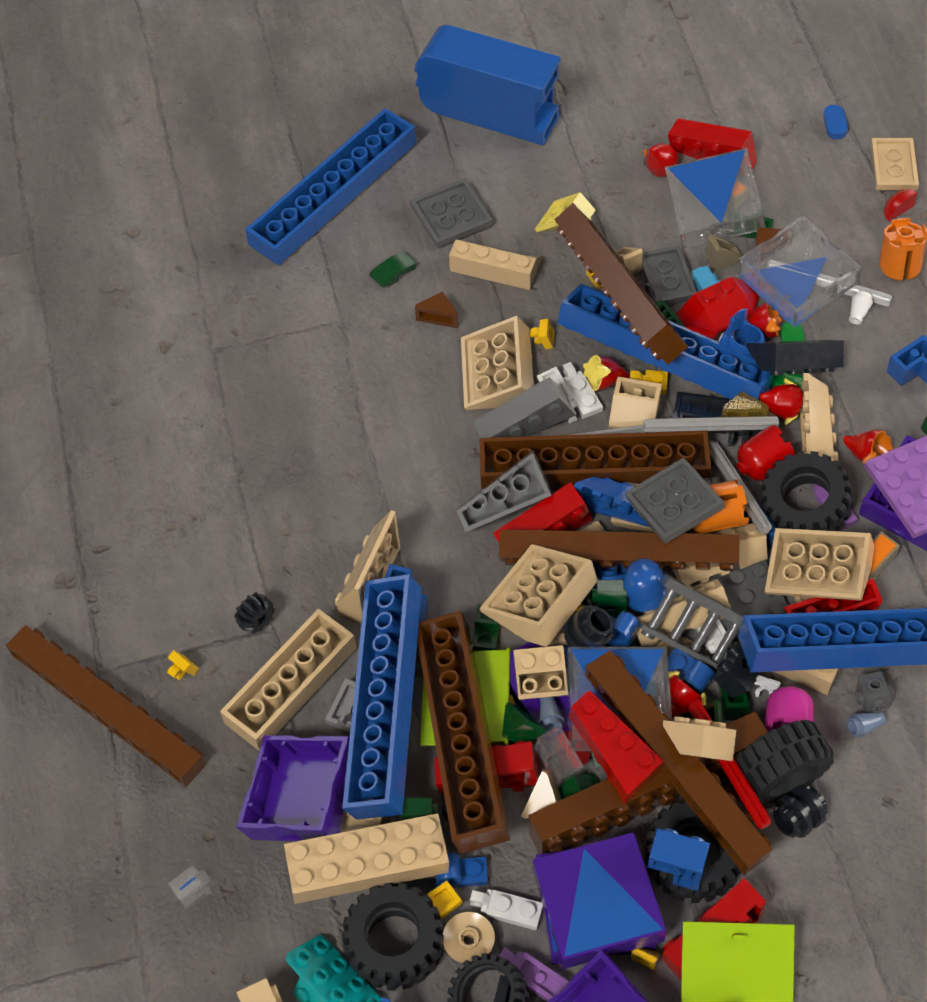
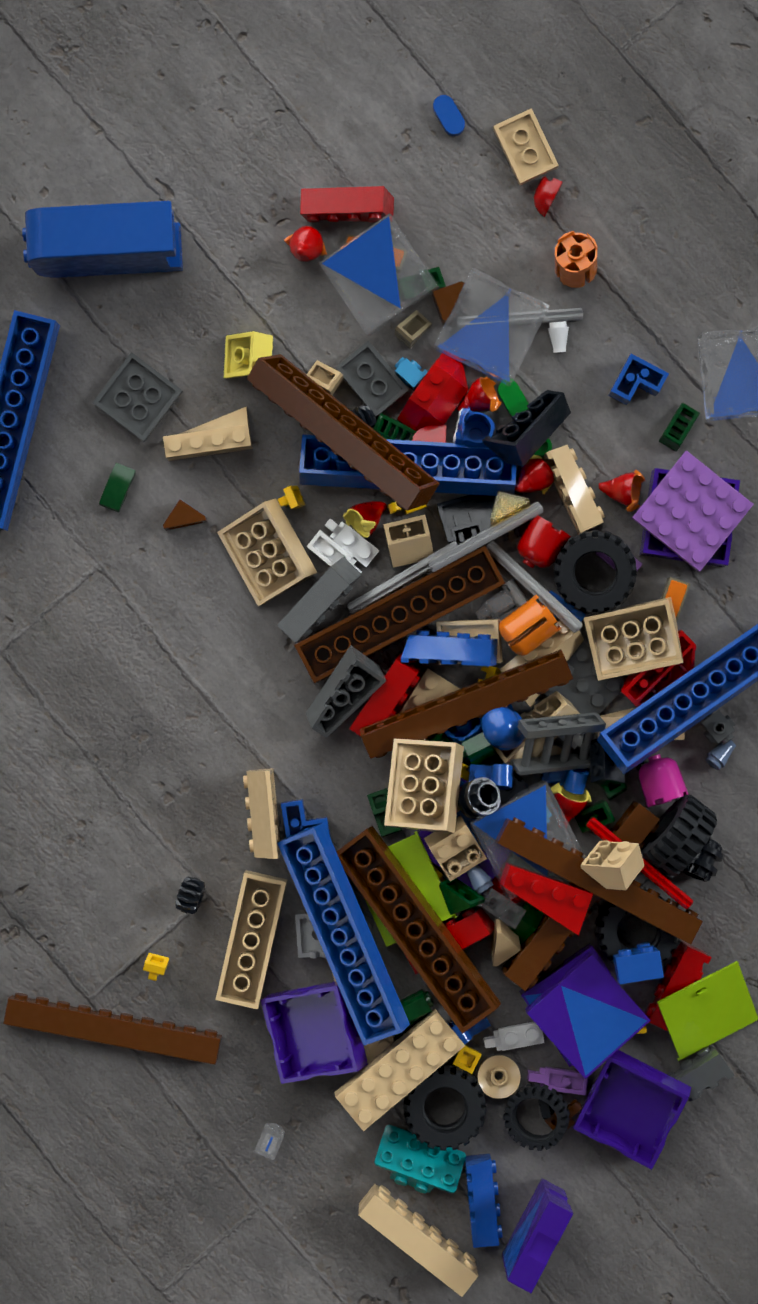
camera: 30 degrees left, 30 degrees up
(674, 500) = (497, 649): dark grey plate -> none

